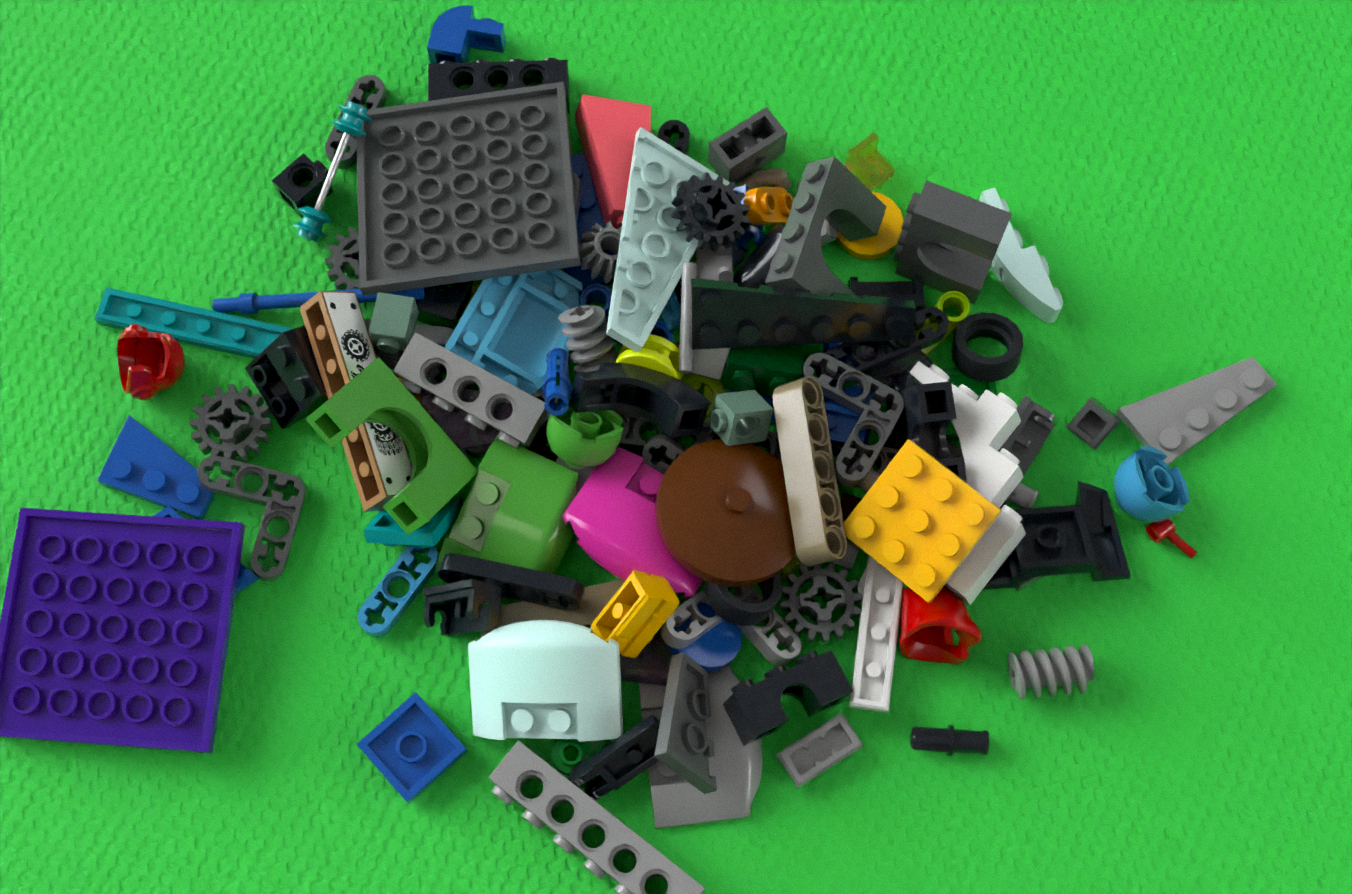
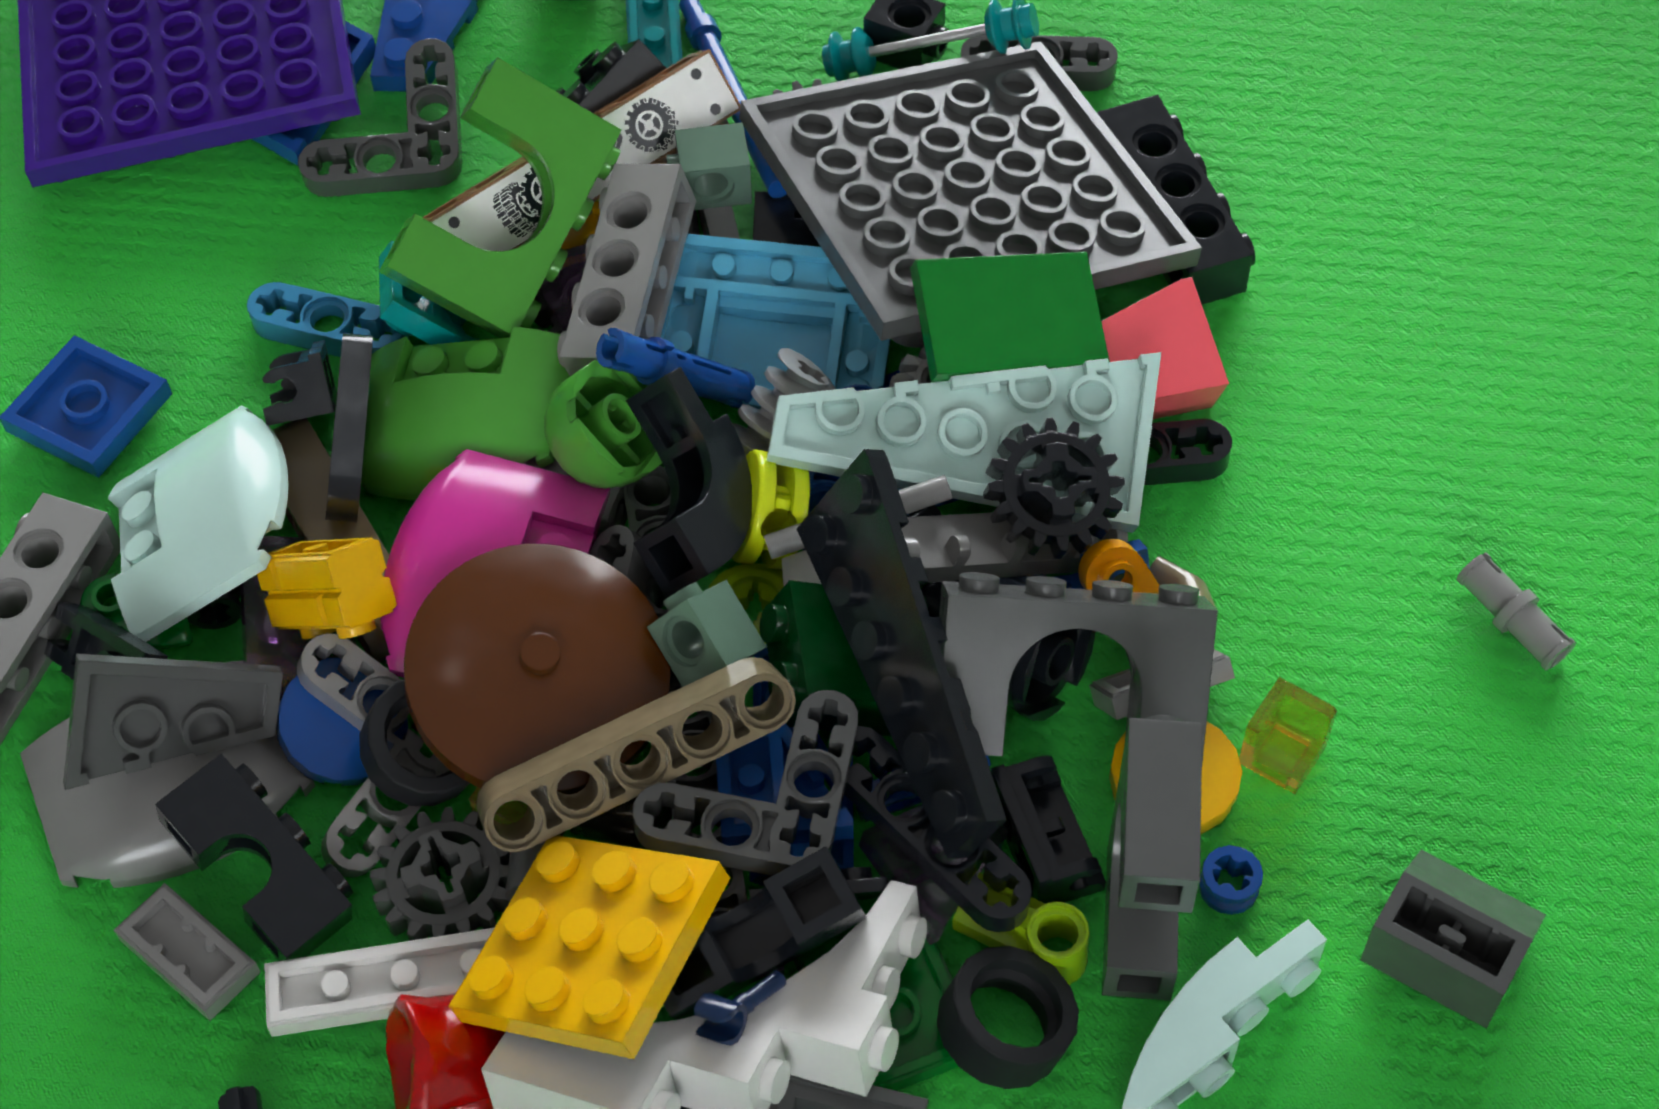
camera: 75 degrees right, 15 degrees down
(220, 413) = (522, 45): dark grey gear -> none
(459, 31) = (1234, 124): blue brick -> none
(591, 193) = (1007, 312): none -> green tile
(747, 146) = (1223, 538): dark grey brick -> none
(829, 31) = (1516, 611): none -> light grey pin
(979, 468) = (728, 1017): none -> dark blue hand
(1002, 132) = (1452, 937): none -> dark grey slope

